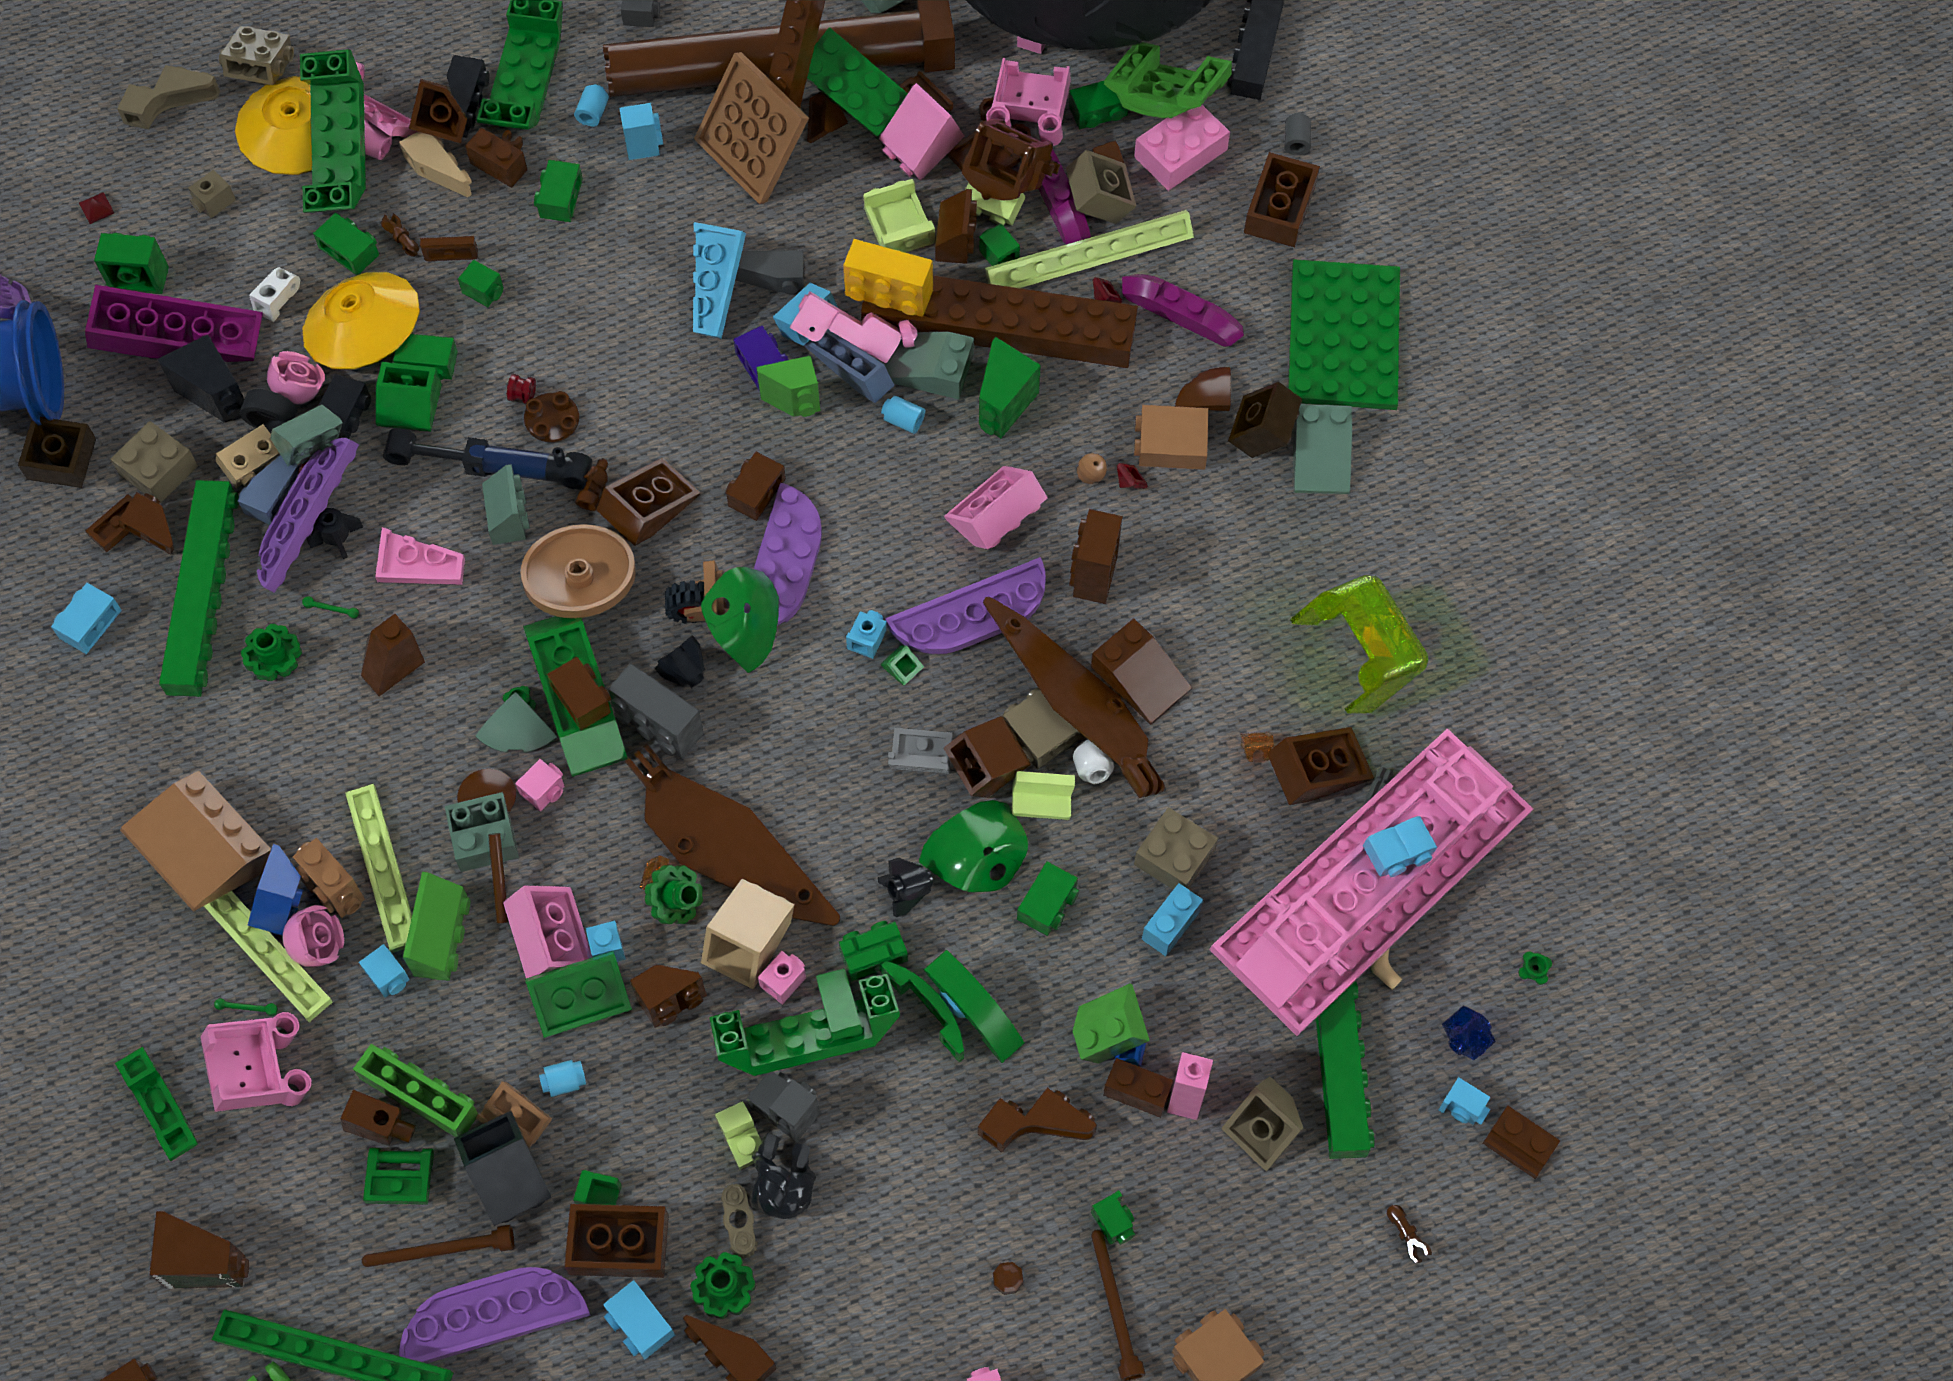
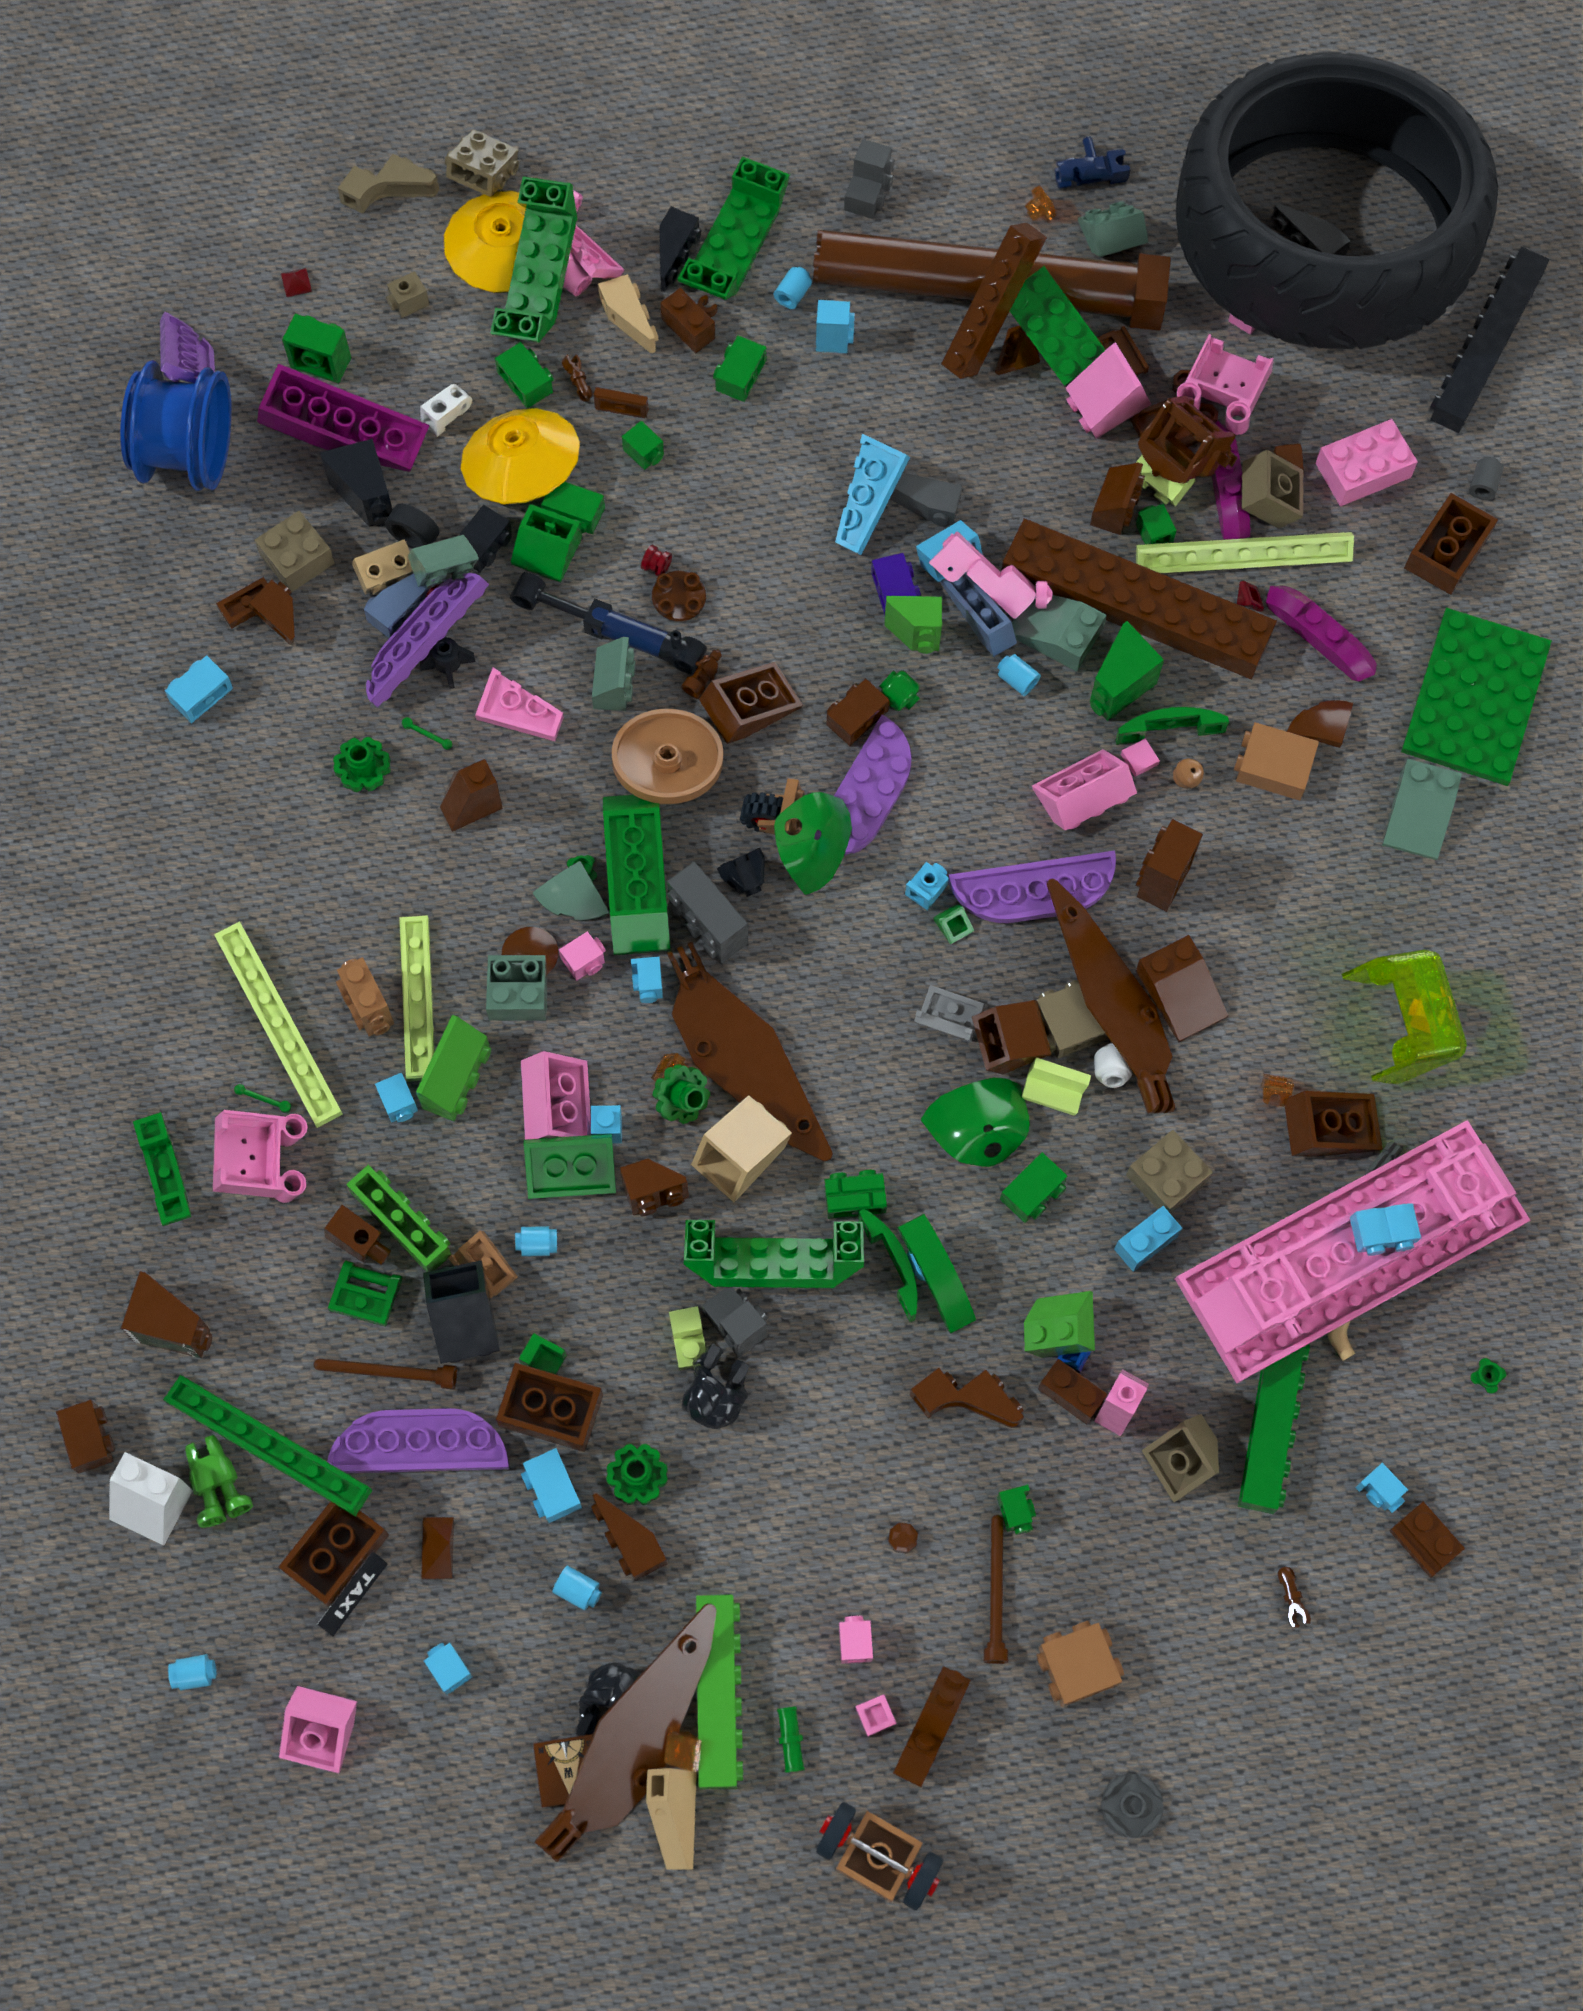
camera: 15 degrees right, 5 degrees up
(57, 452) = (207, 520): dark brown brick -> none
(197, 841) = (253, 931): medium nougat slope -> none
(198, 589) = (309, 685): green brick -> none
(276, 894) = (314, 1001): blue slope -> none
(294, 377) = (444, 499): bright pink cylinder -> none
(313, 937) = (338, 1049): bright pink cylinder -> none
(437, 112) = (641, 263): reddish brown slope -> none
(498, 876) = (522, 1035): reddish brown bar -> none
(579, 692) = (639, 879): reddish brown brick -> none
(611, 790) = (648, 979): none -> medium azure brick
(741, 1239) = (666, 1436): dark tan piece -> none
(750, 128) = (941, 349): medium nougat plate -> none
(782, 976) = (764, 1198): bright pink brick -> none
(793, 455) = (900, 690): none -> green head
(839, 1004) = (809, 1238): green tile -> none
(888, 277) = (1037, 536): yellow brick -> none
(898, 217) = (1064, 473): yellowish green panel -> none
(906, 884) = (902, 1140): black brick -> none
(1042, 464) = (1140, 757): none -> bright pink tile
(1094, 415) = (1205, 720): none -> green slope
(1095, 105) = (1294, 400): green brick -> none
(1130, 477) = (1224, 791): dark red slope -> none
(1161, 89) = (1361, 401): bright green slope -> none
(1265, 420) = (1372, 767): dark brown brick -> none
(1468, 1033) = (1404, 1422): clear blue brick -> none

